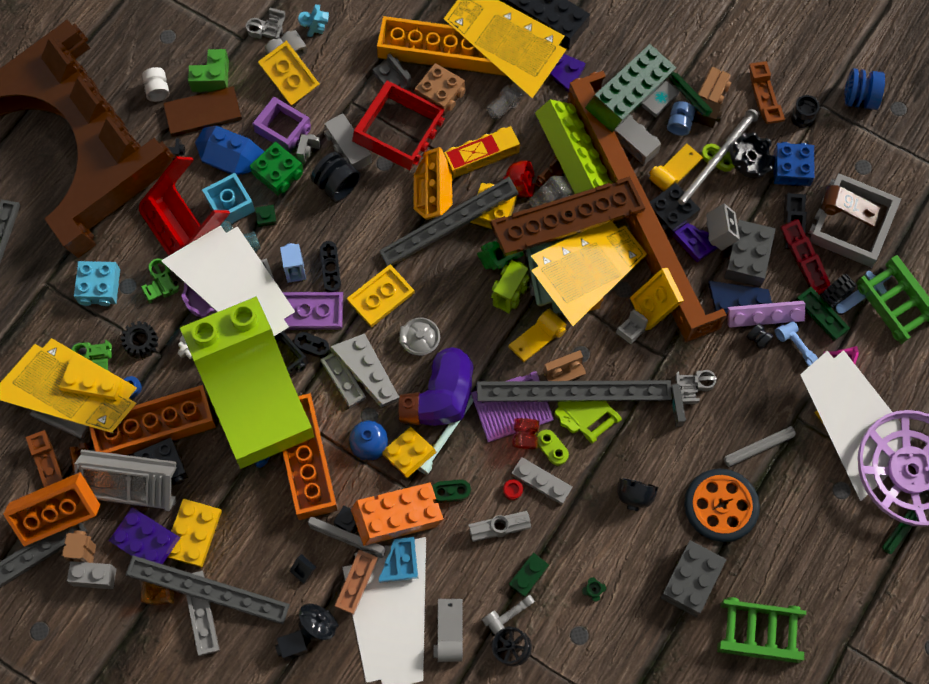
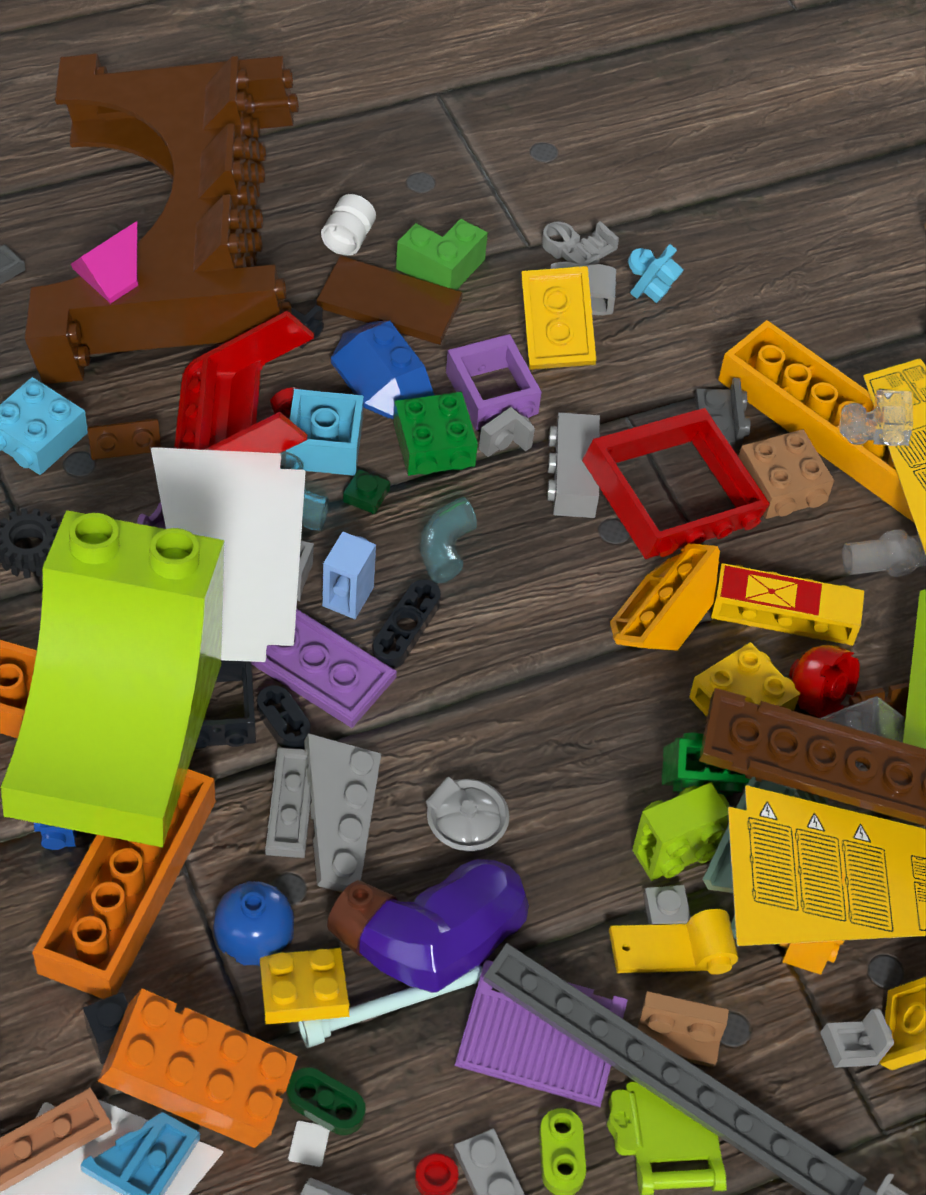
camera: 30 degrees right, 15 degrees down
(76, 184) = (111, 265): none -> dark pink slope
(137, 265) = (123, 439): none -> reddish brown hinge
(162, 282) = (131, 488): bright green piece -> none
(198, 196) = (282, 401): none -> red tile
(316, 218) = (440, 539): none -> clear light blue cylinder
(335, 176) = (516, 494): black wheel -> none
(345, 537) = (87, 1053): light grey tile -> none
(380, 295) = (453, 714): yellow plate -> none
(449, 222) = (652, 667): dark grey tile -> none
(455, 511) = (308, 1144): none -> white sticker
(472, 39) = (886, 425): none -> clear brick
(523, 321) = (666, 905): none -> light grey plate
(525, 433) = (531, 1088): clear red wheel -> none

